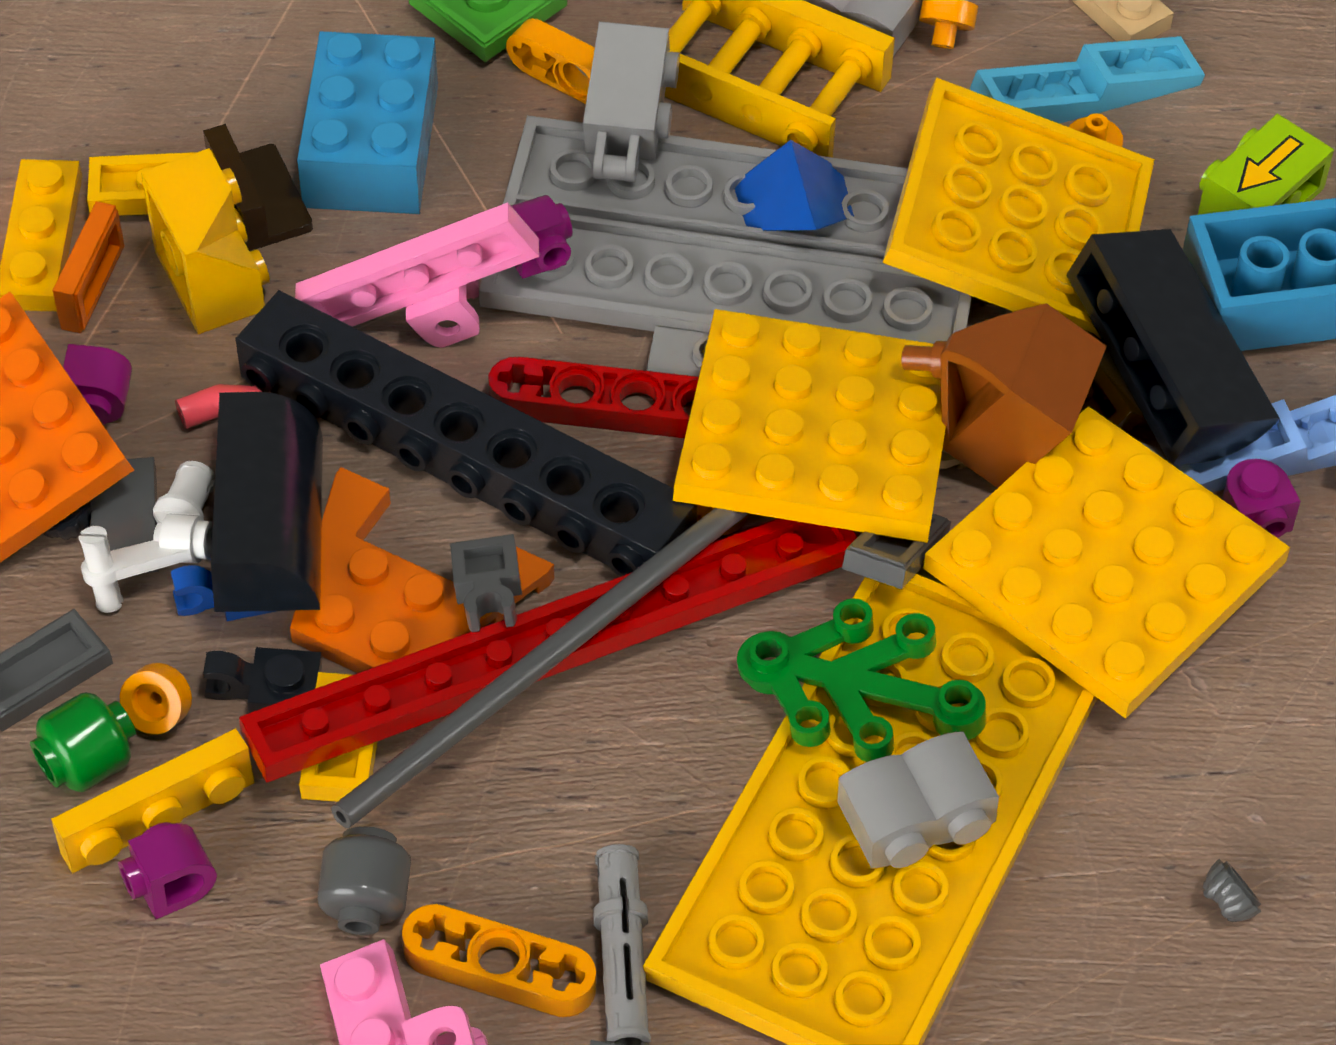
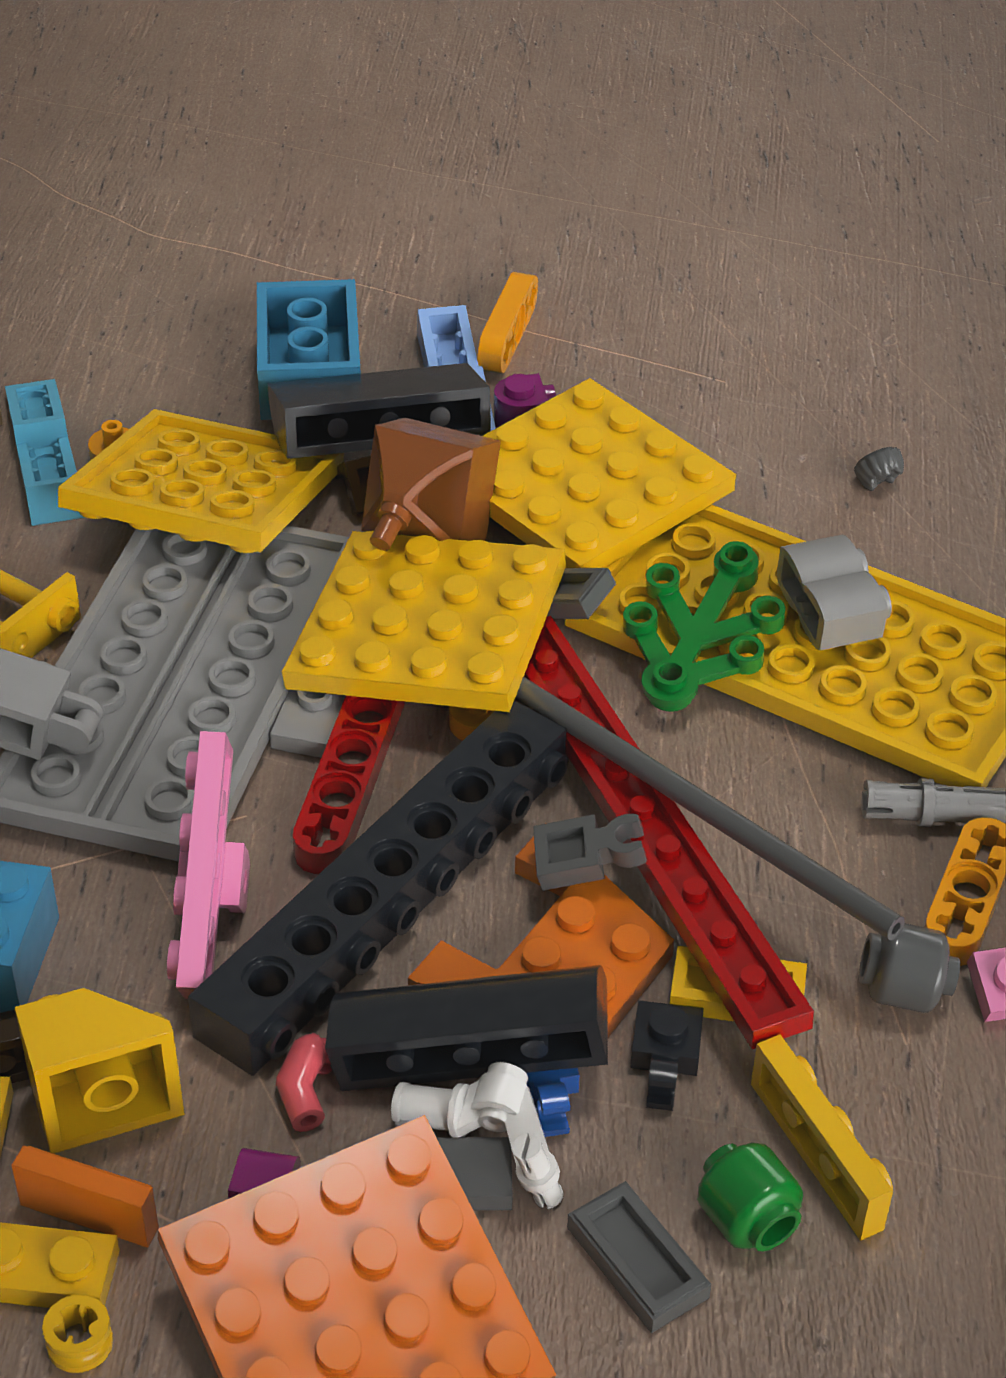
camera: 85 degrees left, 10 degrees down
(156, 698) = (691, 1131): light orange tile -> none
(167, 868) = (897, 1126): magenta plate -> none
(552, 227) = (158, 785): magenta plate -> none
(793, 191) = (147, 620): blue slope -> none
(1267, 169) = (195, 356): lime brick -> none

